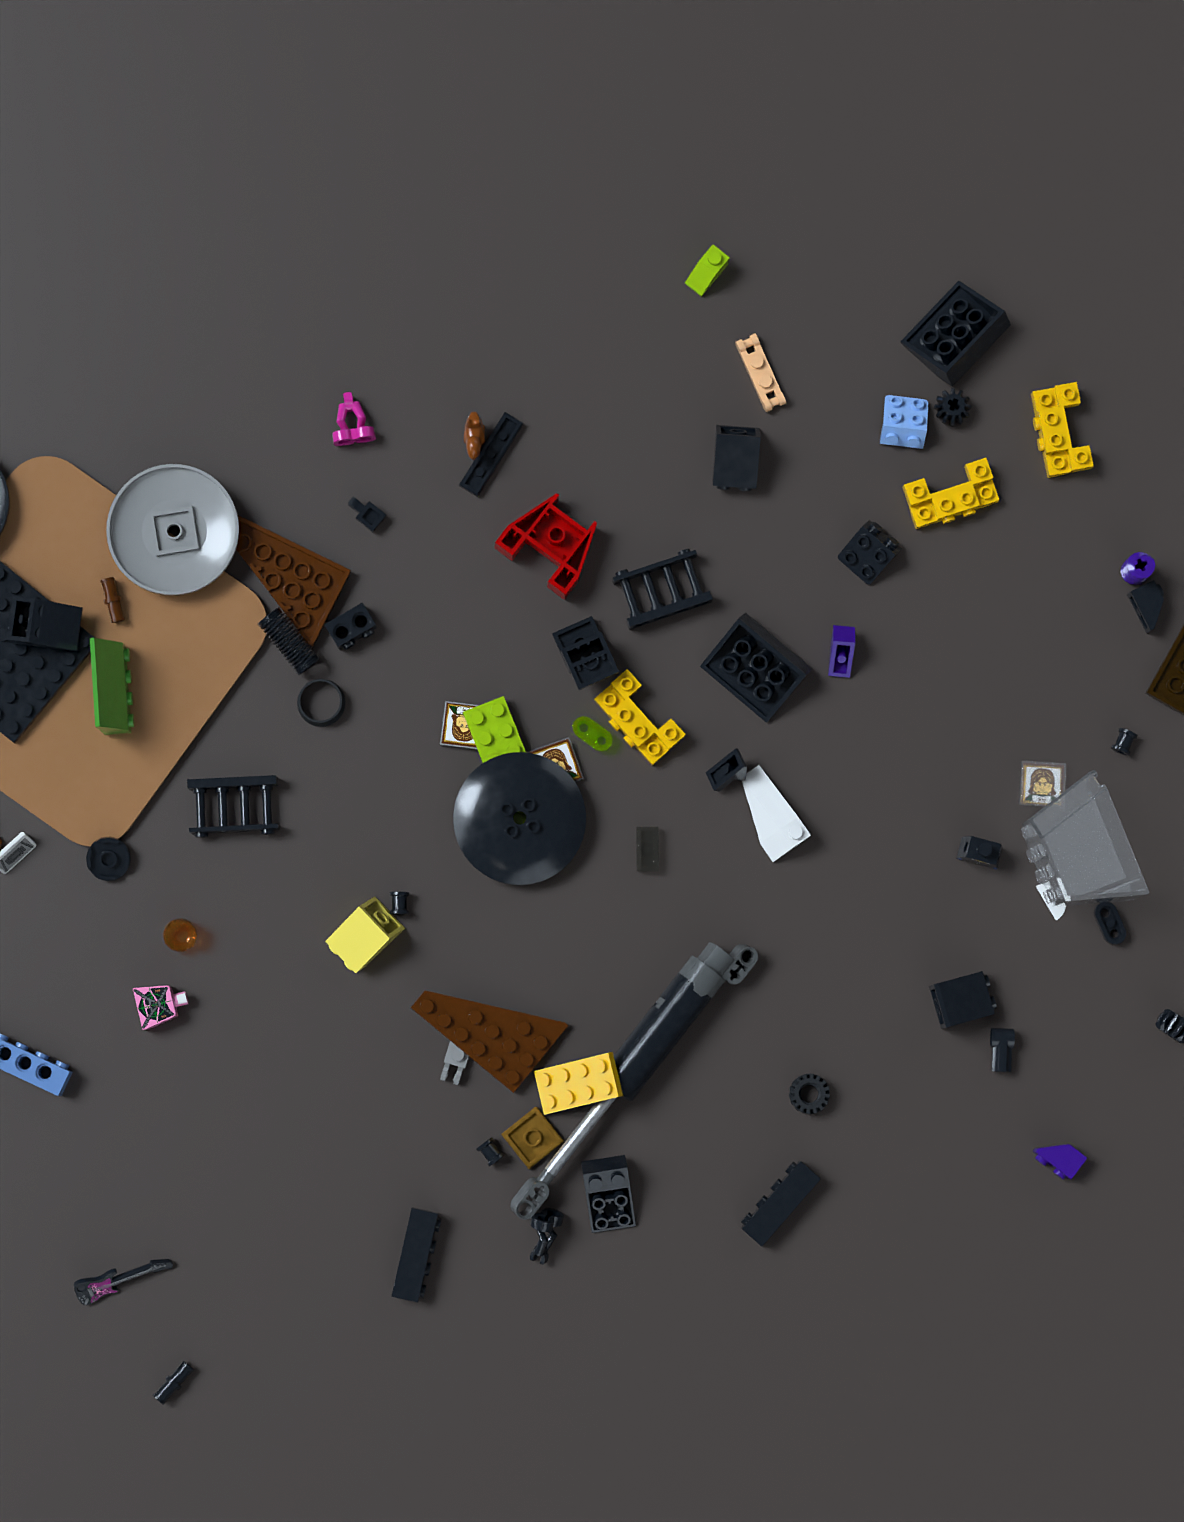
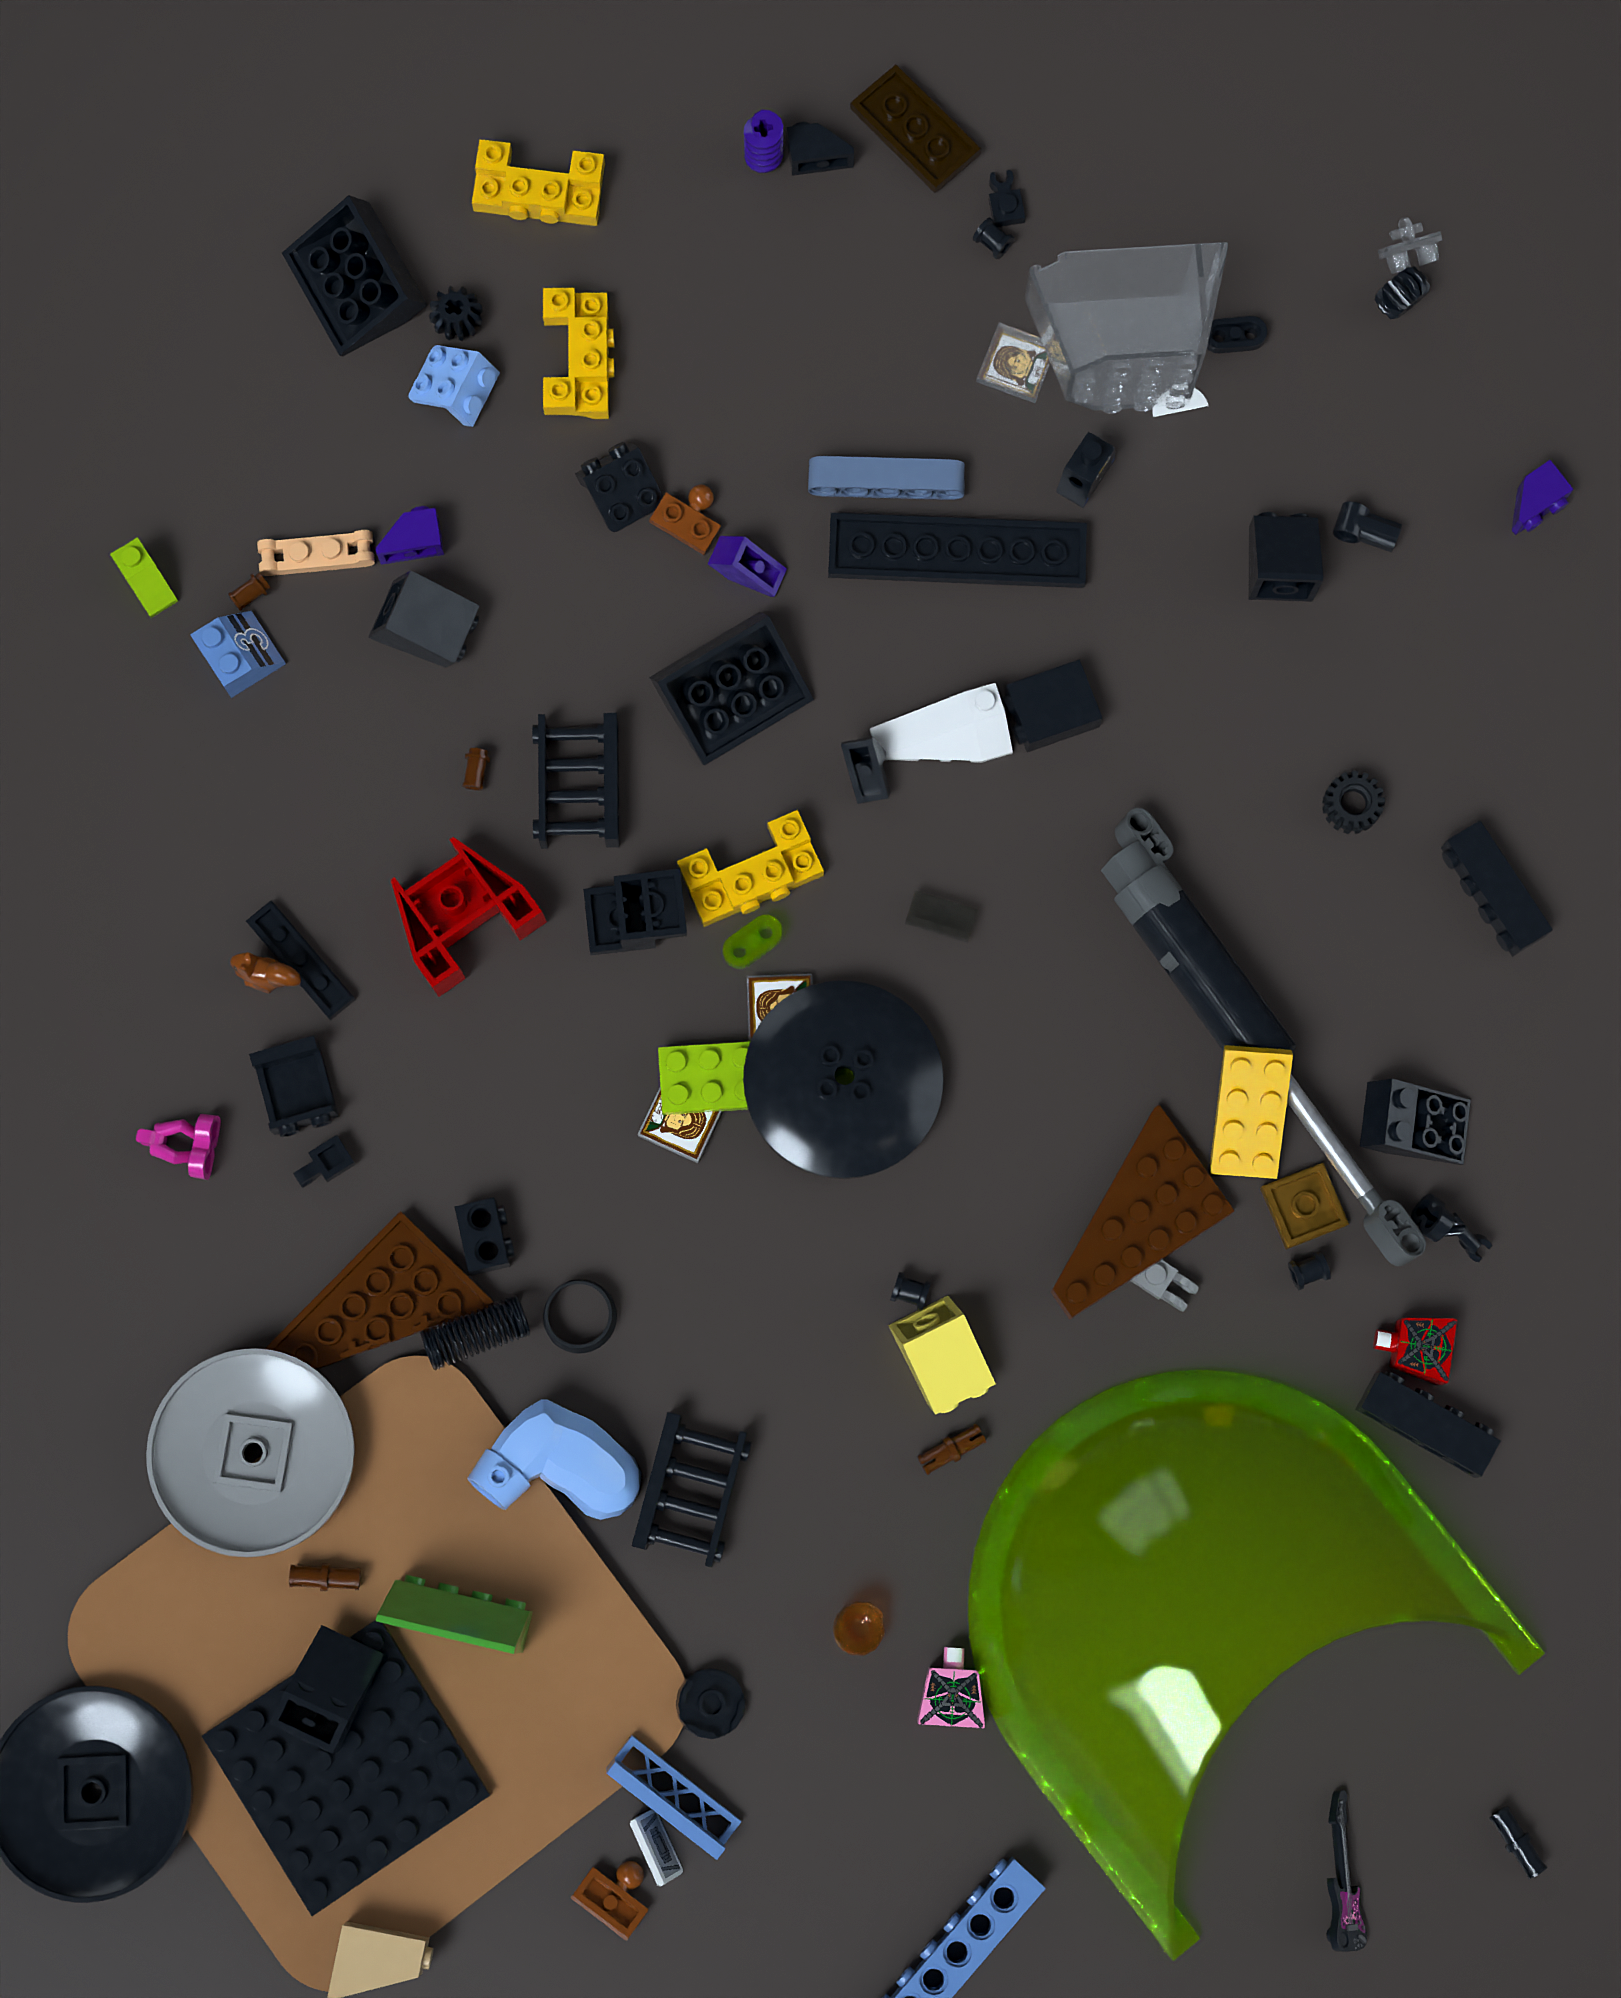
camera: 70 degrees left, 5 degrees down
(37, 851) = (664, 1807): none -> medium blue fence
(231, 721) = (566, 1454): none -> light blue piece
(282, 1119) = (1168, 1570): none -> clear neon green windscreen
(308, 959) = (951, 1449): none -> reddish brown pin
(409, 479) = (295, 1086): none -> black panel
(463, 1235) = (1420, 1347): none -> torso
(649, 522) = (476, 768): none -> reddish brown pin
(678, 346) = (237, 651): none -> medium blue slope
(721, 339) = (249, 591): none -> reddish brown pin
(790, 430) = (412, 537): none -> dark purple slope
(810, 877) = (1051, 706): none -> black brick
(859, 601) = (685, 521): none -> dark orange plate
(897, 784) = (957, 550): none -> black plate
(932, 722) = (886, 477): none -> sand blue beam
(1154, 743) = (1005, 204): none -> black plate

